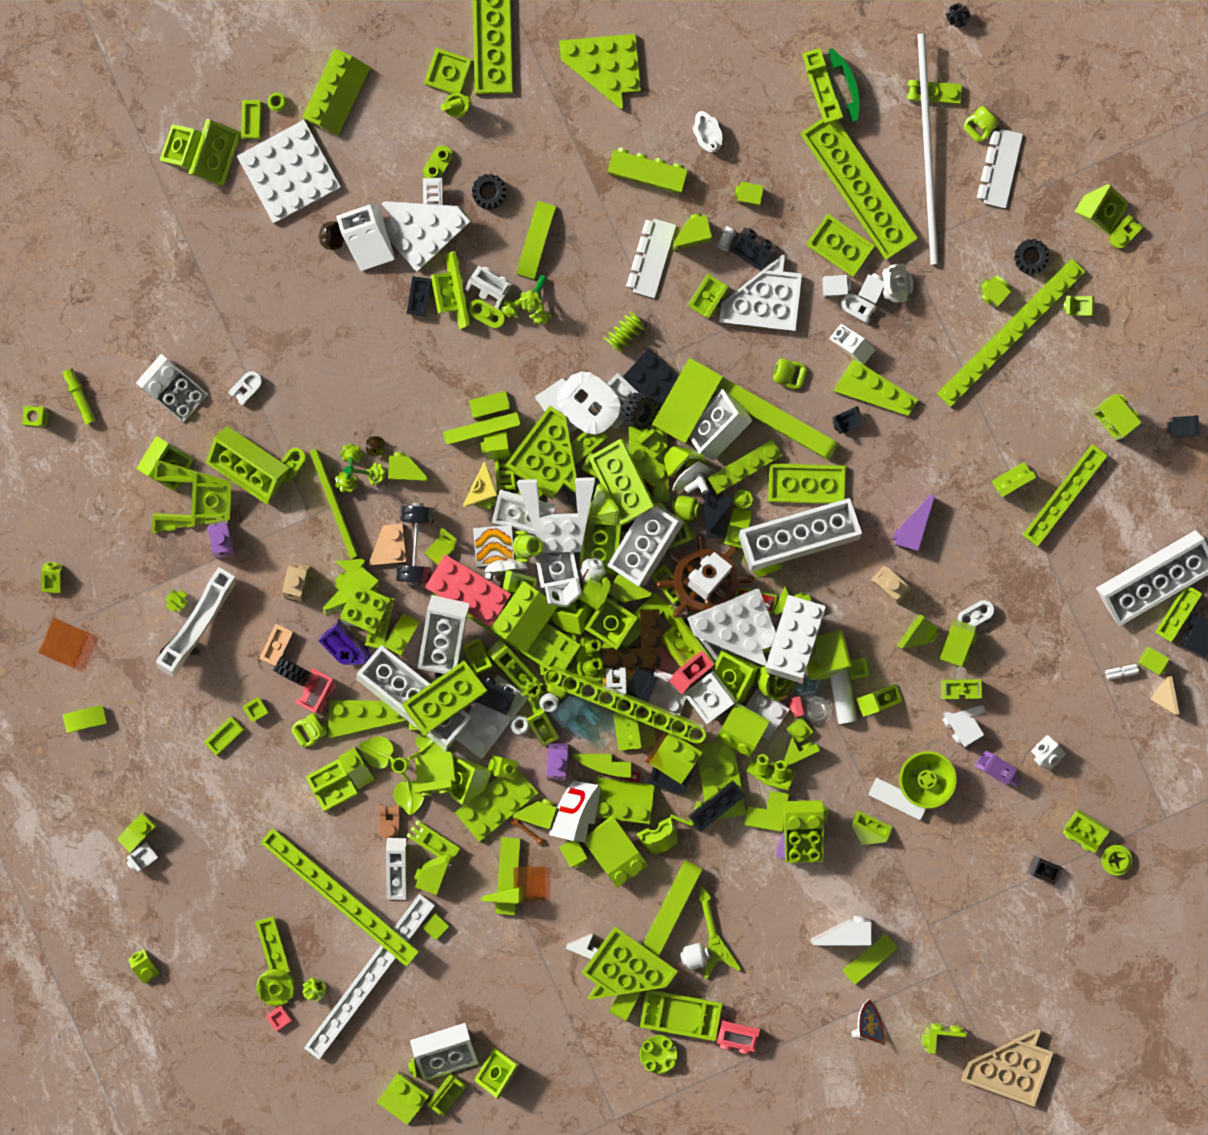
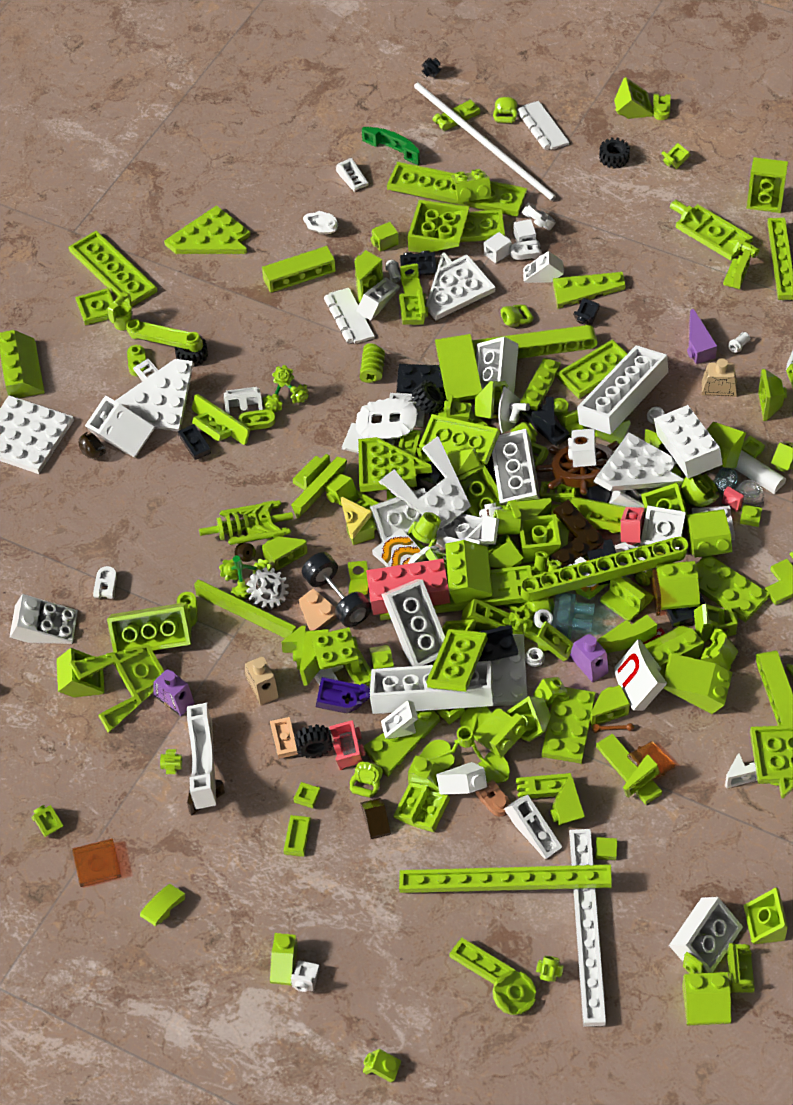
camera: 35 degrees left, 35 degrees down
(279, 1018) = (540, 1019): coral tile -> none
(291, 766) = (376, 818): none -> dark brown slope
(366, 708) = (400, 721): none -> white slope
(372, 503) = (265, 596): none -> white gear
(374, 793) = (462, 779): none -> white slope
(405, 422) = (255, 522): none -> lime bar
(474, 161) = (164, 335): none -> lime piece
(535, 240) = (255, 358): lime slope -> none
(573, 853) = (665, 712): lime brick -> none
(674, 803) = (706, 619): none -> lime slope
(688, 261) = (376, 298): none -> white slope
(716, 806) = (742, 595): black plate -> none
(729, 267) = (410, 282): none -> lime bracket
(771, 773) = (766, 552): lime connector -> none
(784, 76) = (350, 164): none -> white slope
(794, 755) = (764, 527): lime slope -> none
(800, 225) = (436, 226): none -> lime slope
(812, 573) = (653, 413): none -> white plate
(821, 86) = (361, 149): lime slope -> none
(868, 198) = (472, 185): none -> lime bracket
(945, 555) = (736, 344): none -> white pin
(994, 290) = (610, 183): lime brick -> none
(1011, 332) = (645, 202): lime plate -> none
(1034, 419) = (713, 231): none -> lime plate

